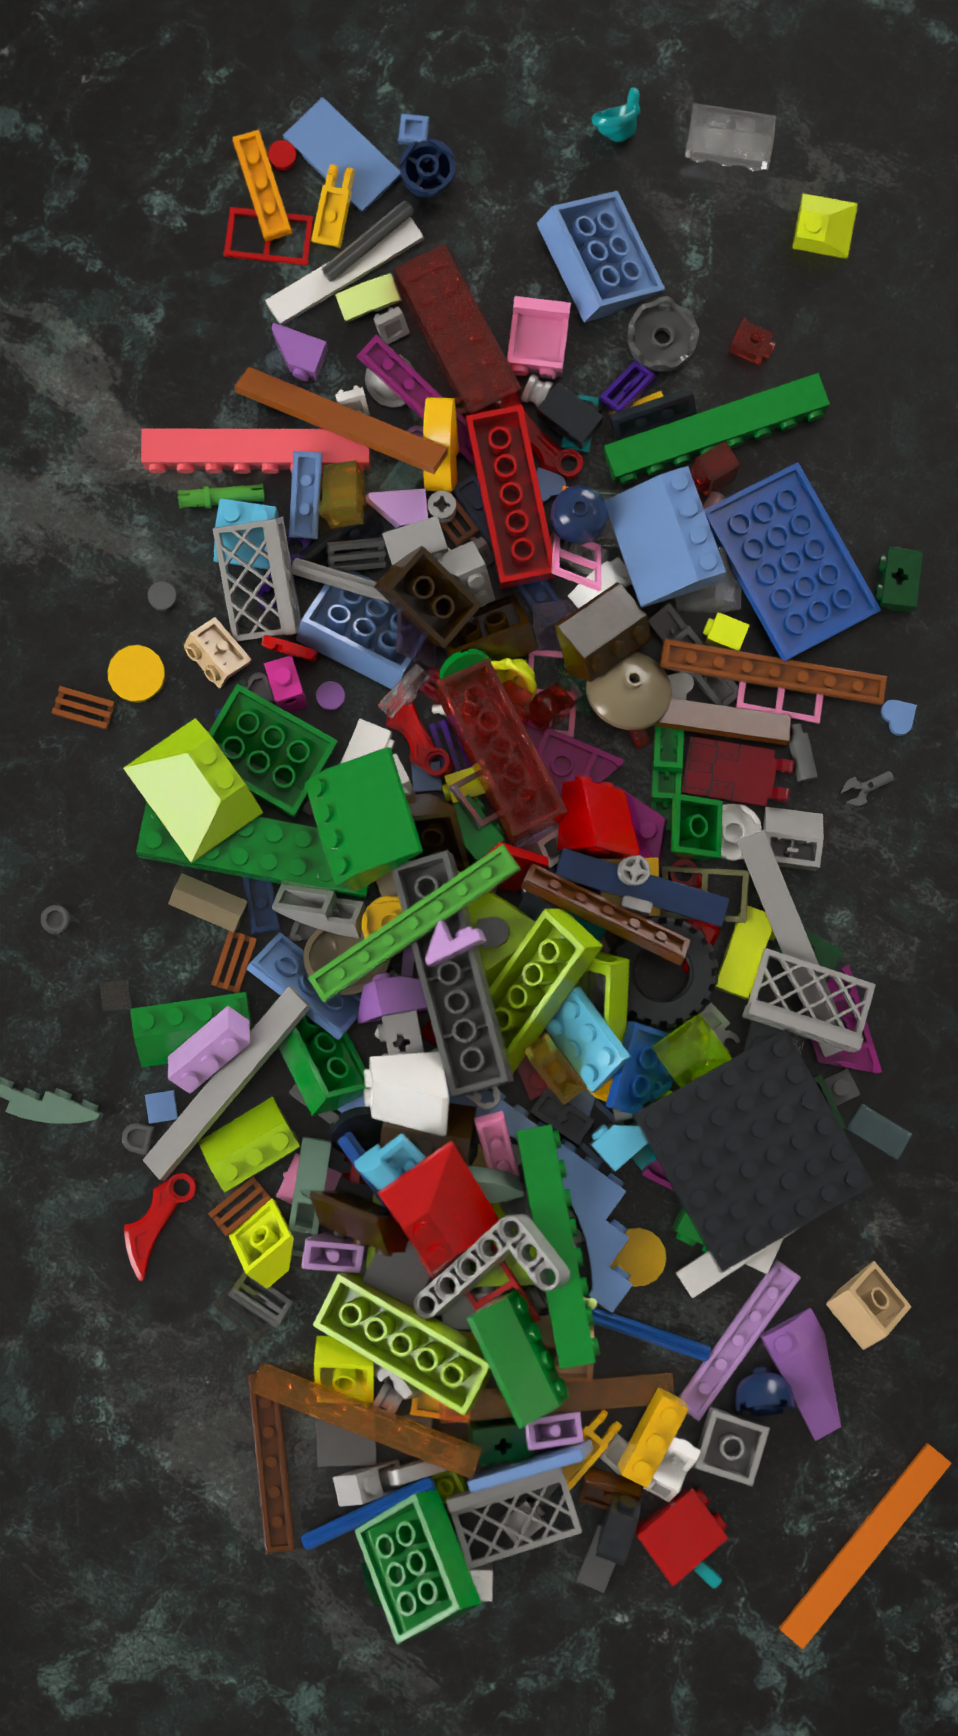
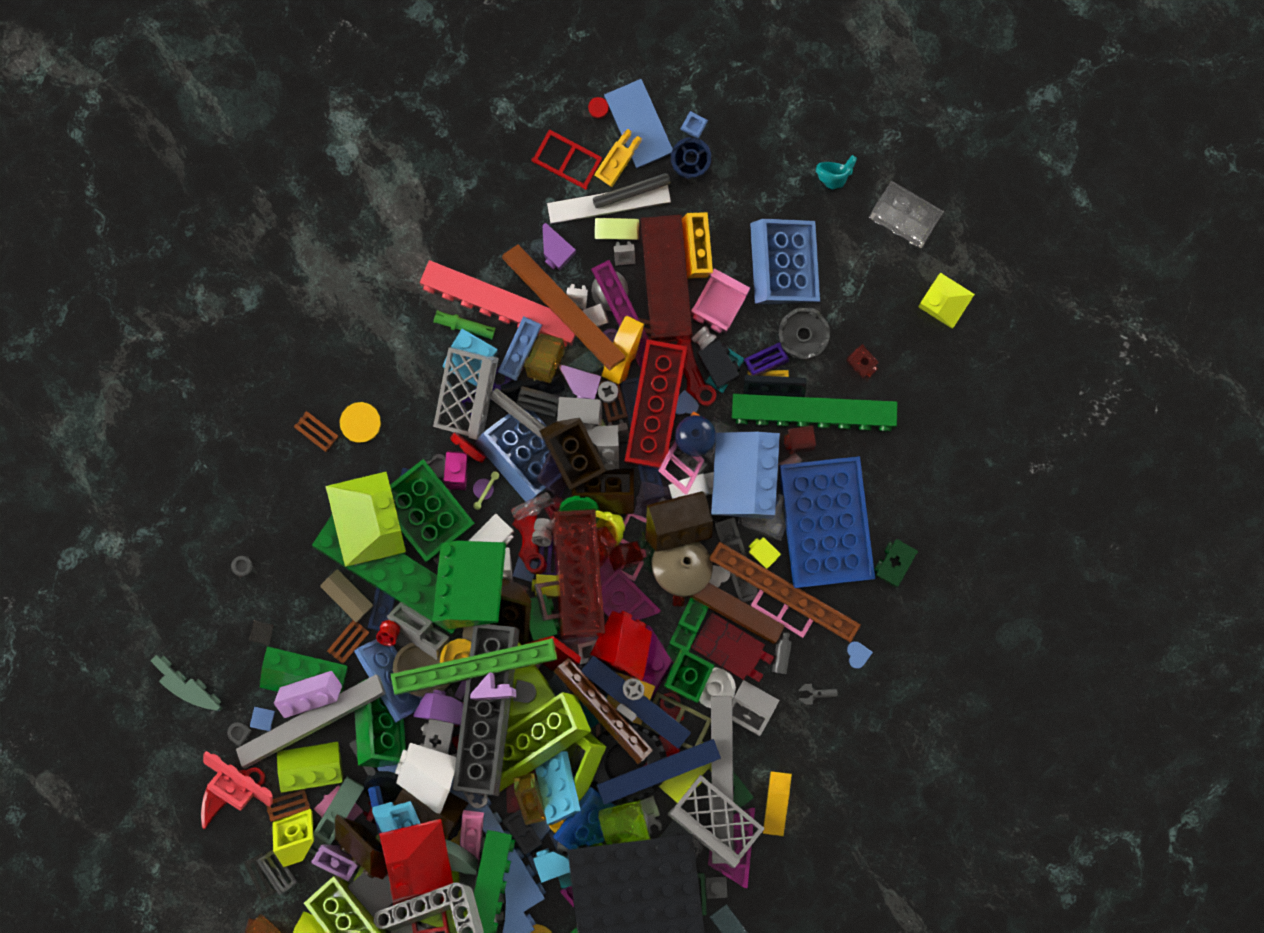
camera: 25 degrees right, 0 degrees up
(157, 1208) = (234, 786): none -> coral bracket
(162, 596) = (398, 377): dark grey tile -> none
(216, 652) = (419, 429): tan bracket -> none
(262, 185) = (576, 123): light orange tile -> none
(282, 929) = (388, 633): none -> red wheel
(338, 672) = (477, 505): none -> yellowish green hinge
(389, 414) = (597, 315): none -> white tile
(431, 719) = (542, 533): none -> light grey wheel
(481, 275) = (697, 245): none -> yellow brick
(710, 965) = (658, 771): none -> dark blue tile
(874, 945) = (777, 803): none -> yellow slope

